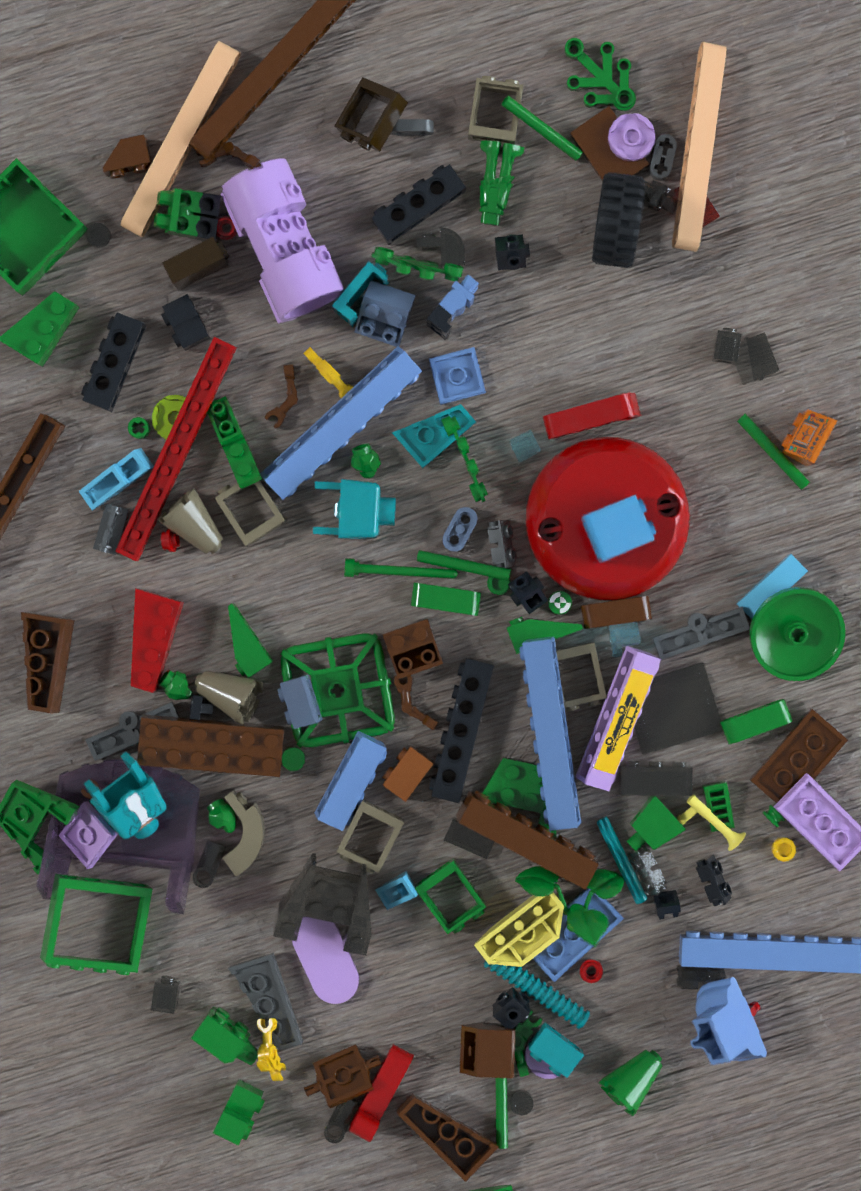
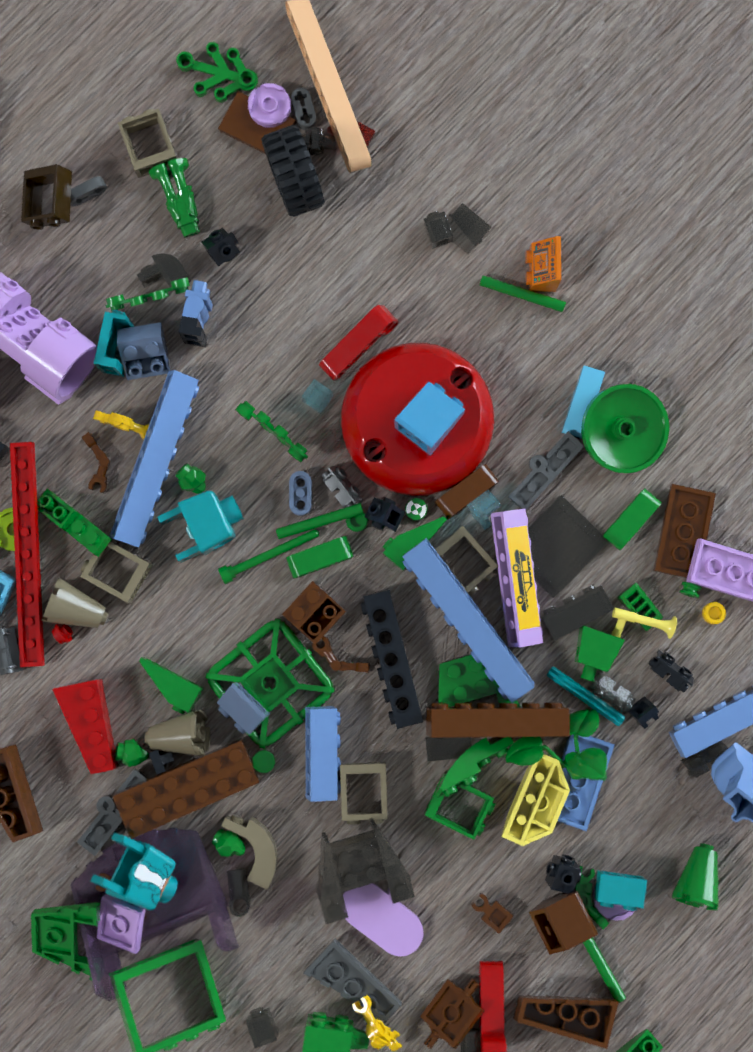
camera: 30 degrees left, 5 degrees down
(392, 230) = (132, 216): black brick -> none
(397, 890) = (411, 826): medium azure slope -> none
(407, 773) = (366, 720): dark orange brick -> none
(428, 437) = (234, 432): teal wing -> none
(429, 1010) = (494, 914): none -> reddish brown plate
(457, 376) = (231, 370): medium blue tile -> none
(480, 864) = (469, 764): none -> green slope
(521, 1102) = (616, 951): clear smoke tile -> none
(542, 128) = (191, 134): green piece -> none
(543, 993) = (579, 846): teal piece -> none
(594, 977) = (618, 807): red plate -> none

